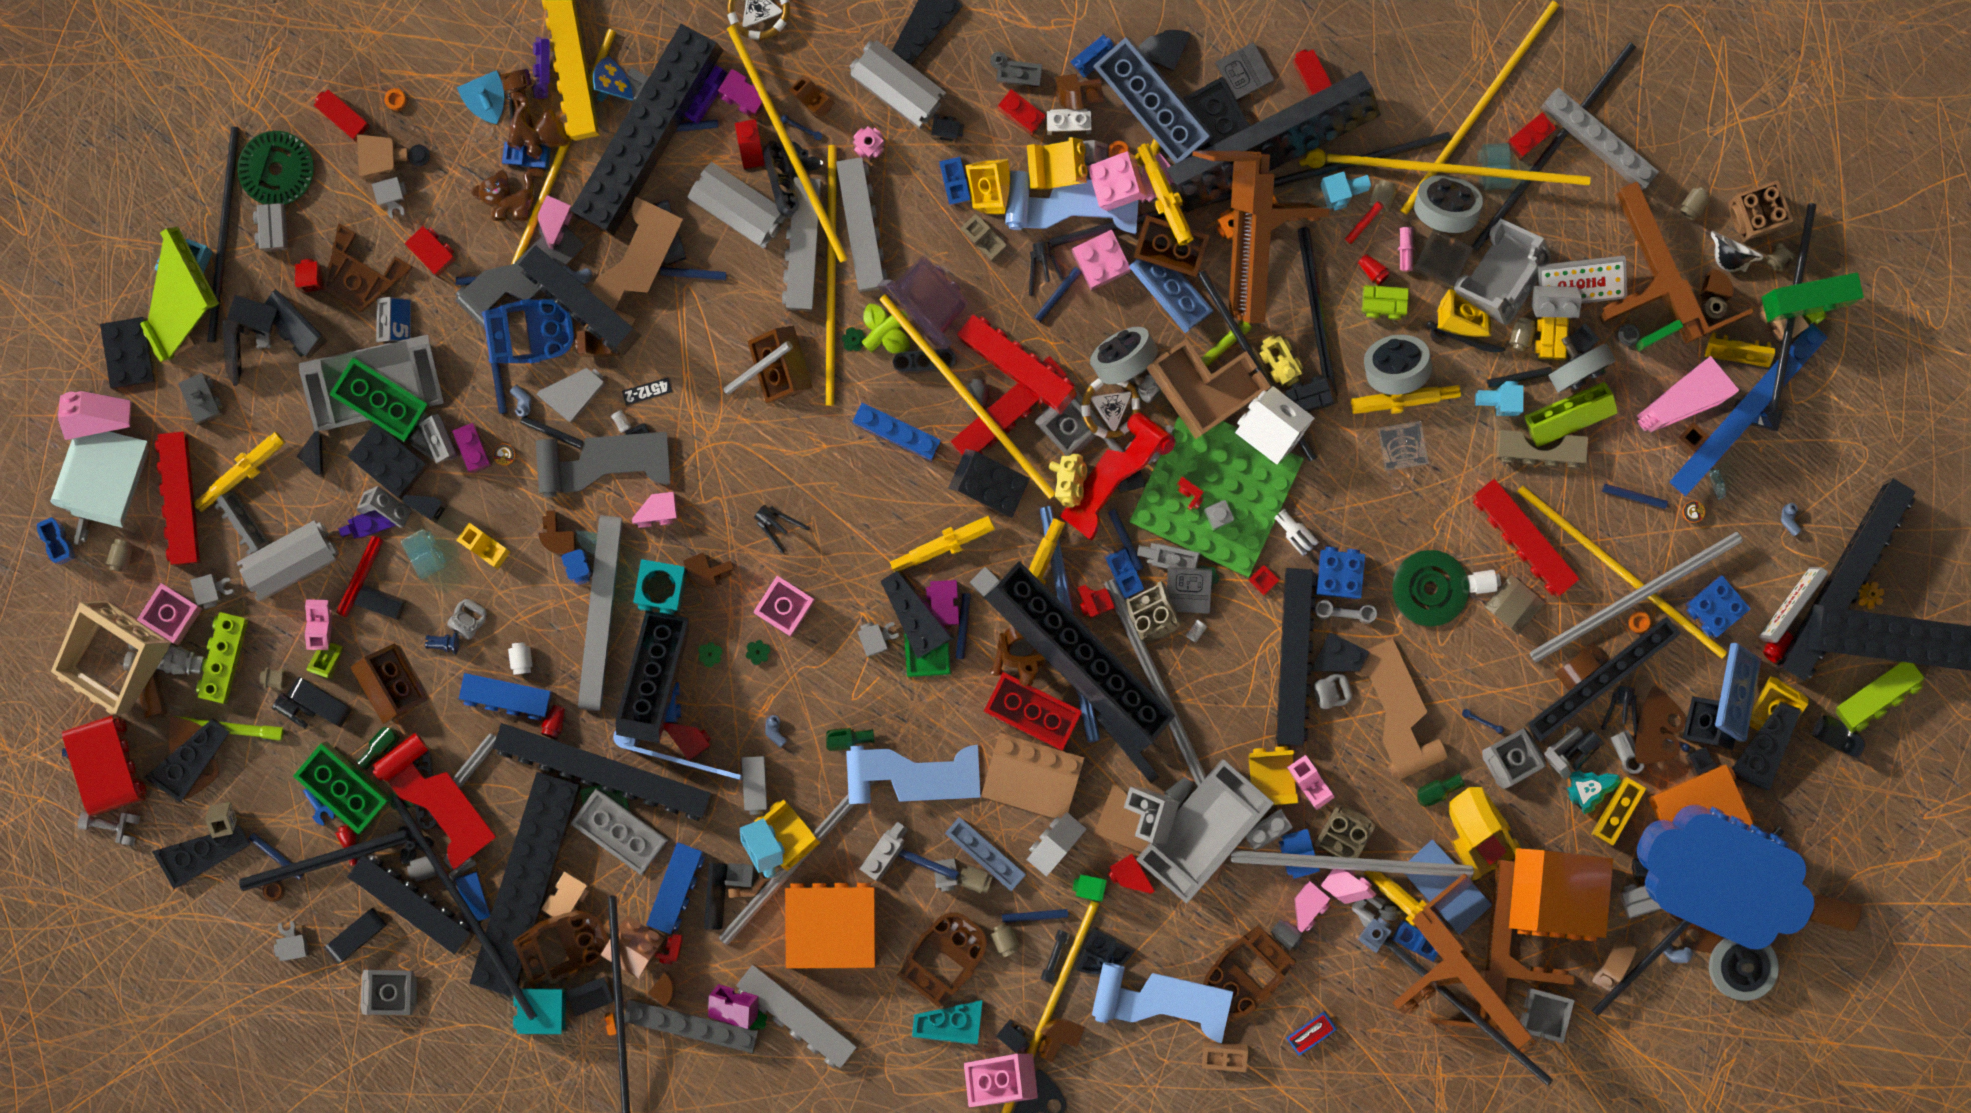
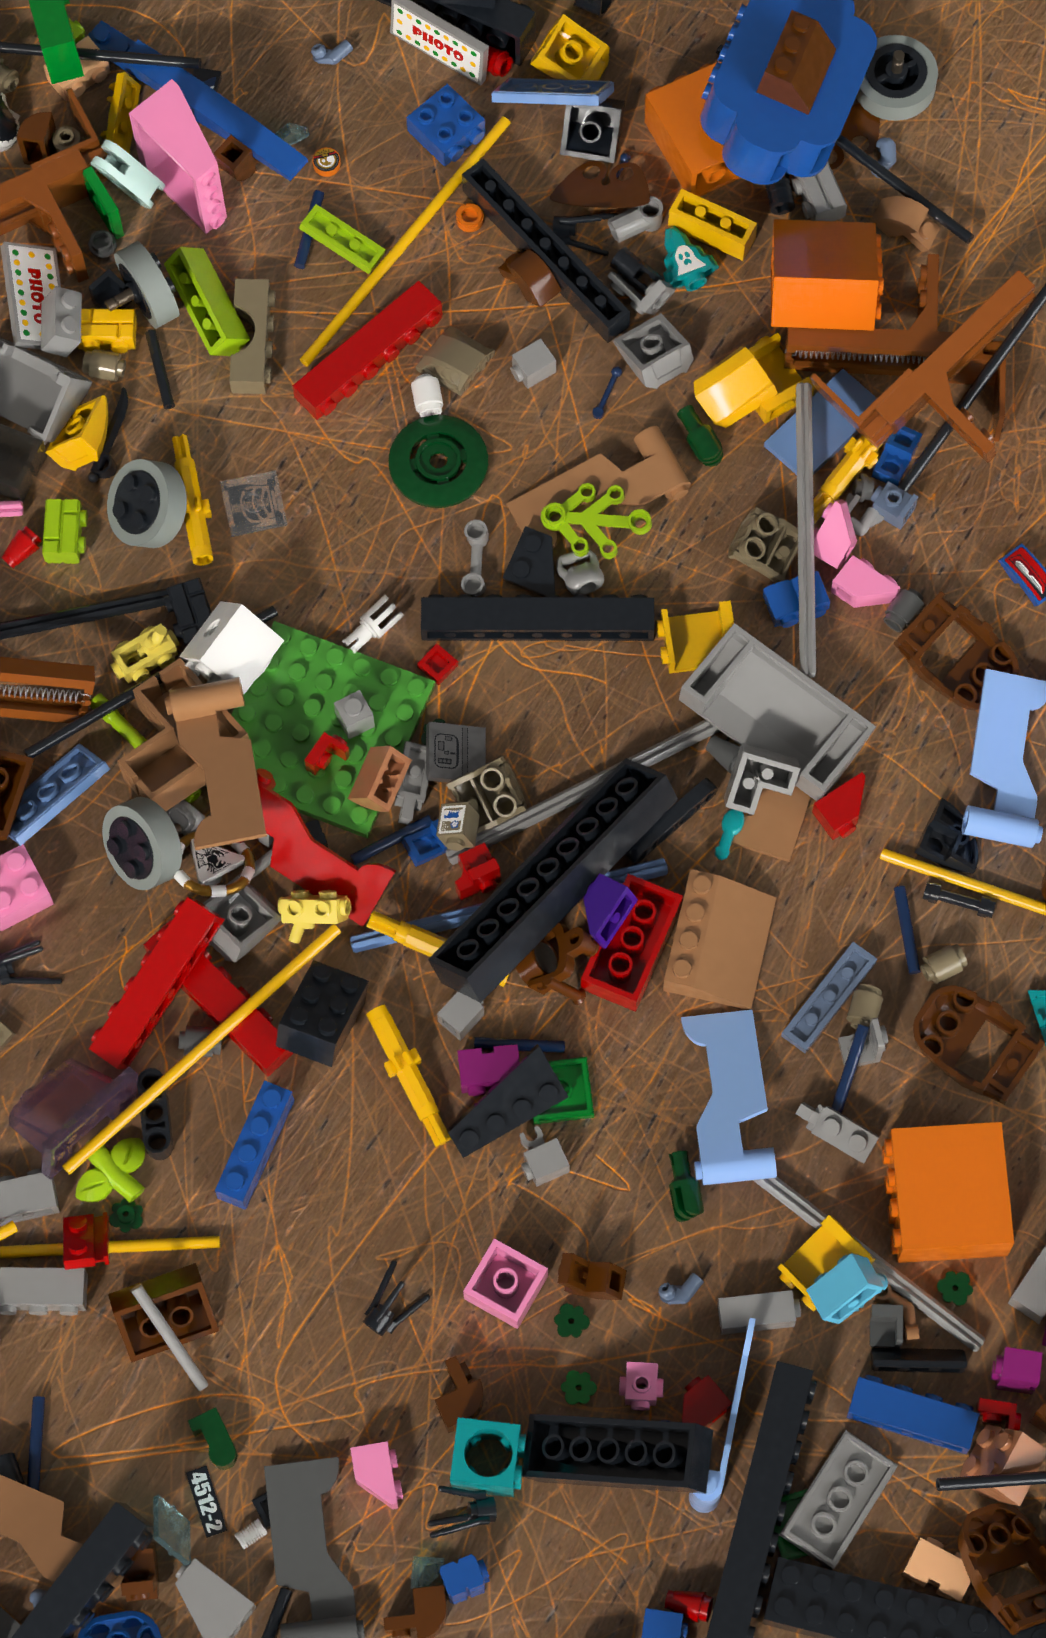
camera: 95 degrees left, 15 degrees down
(600, 613) = (531, 1546): light grey beam -> none
(622, 366) = (171, 1530): none -> clear light blue piece
(625, 581) = (480, 1512): none -> black plant
(690, 399) = (221, 1448): none -> dark green leg
(699, 963) = (1017, 1370): none -> magenta brick
(713, 702) = (641, 1374): none -> bright pink brick
(759, 929) = (959, 1280): none -> dark green plant
(785, 667) = (591, 1279): none -> reddish brown brick
(833, 310) = (85, 1241): none -> red plate
(1052, 692) = (607, 907): none -> dark purple slope
(1055, 843) = (809, 900): light grey brick -> none
(1057, 294) = (59, 945): dark blue piece -> none
(1089, 887) = (864, 853): green slope -> none
(1120, 791) = (731, 825): none -> teal piece
(1126, 588) = (457, 825): none -> dark tan brick
(1168, 532) = (380, 778): none -> nougat brick
(1176, 418) = (225, 761): none -> medium nougat door
(1198, 635) = (519, 746): white piece -> none
(1268, 830) = (767, 630): light grey brick -> none
(1310, 782) = (701, 591): bright pink brick -> none
(1340, 573) = (424, 565): blue brick -> none
(1371, 702) = (591, 519): none -> lime plant
(1491, 850) = (776, 370): red tile -> none
(1506, 664) = (533, 364): none -> light grey brick
(1507, 399) = (190, 377): medium azure brick -> none
(1546, 1015) = (972, 287): light grey piece -> none
(1621, 521) = (342, 239): none -> lime plate
(1636, 596) = (439, 219): light grey axle -> none
(1680, 355) = (128, 174): none -> light aqua piece
(1700, 761) = (642, 139): black panel -> none
(1725, 881) = (798, 63): none -> reddish brown slope
(1765, 751) = (617, 59): black wing -> none

